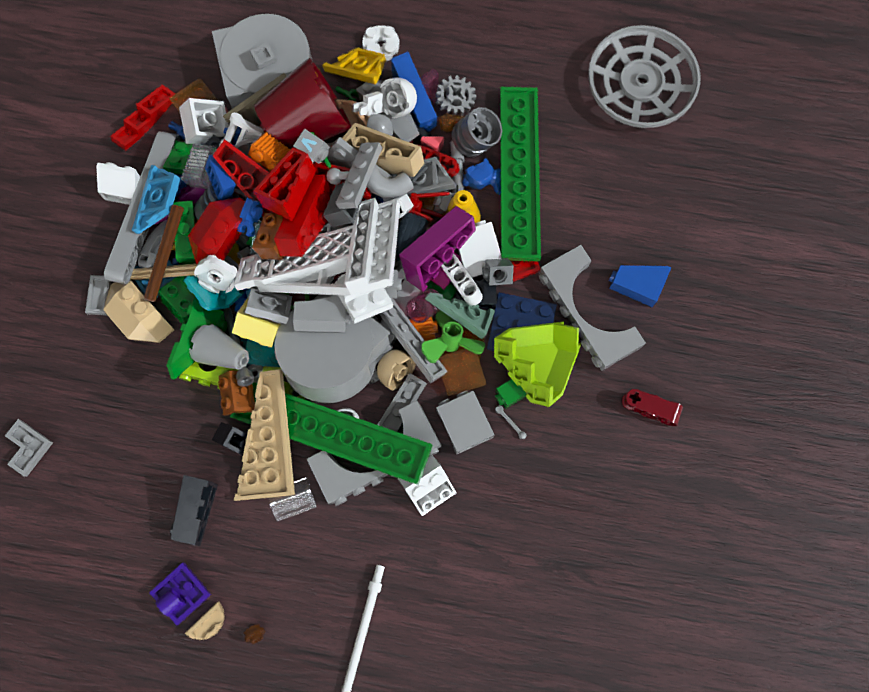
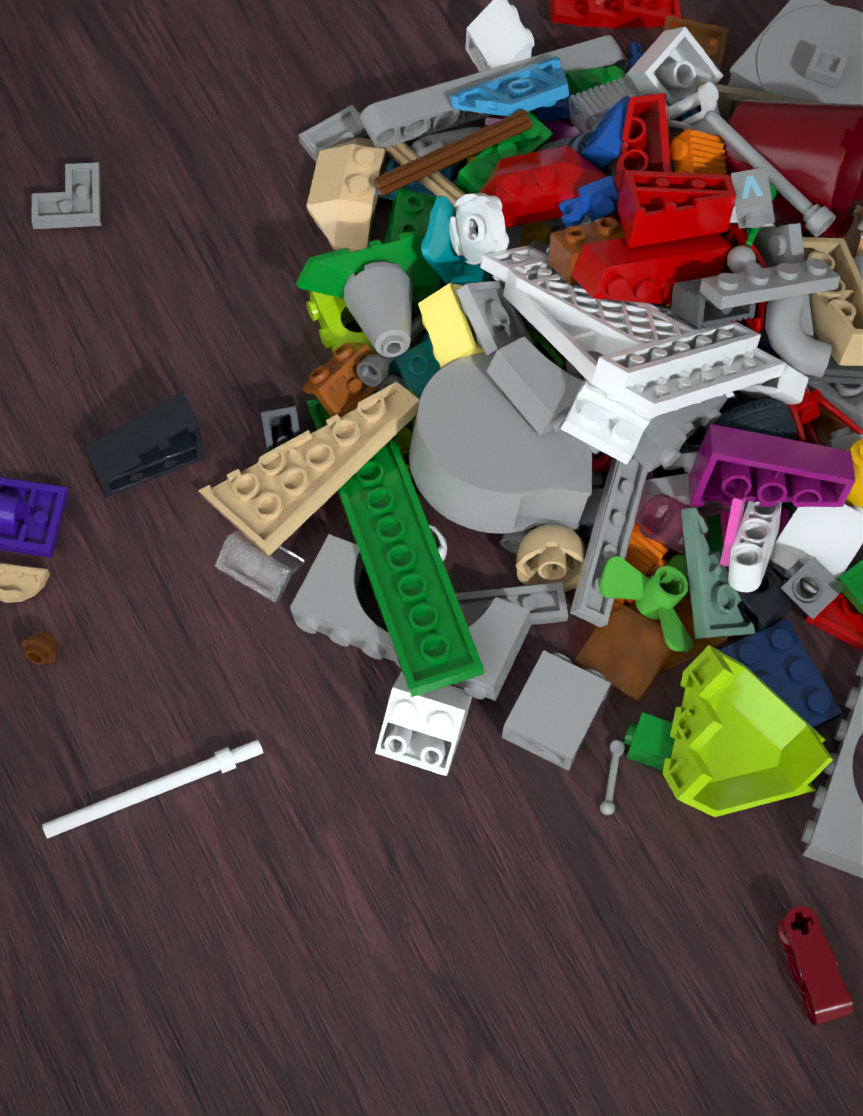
camera: 50 degrees right, 10 degrees down
(340, 127) = (815, 216): none -> light grey piece
(449, 282) = (733, 526): none -> piece

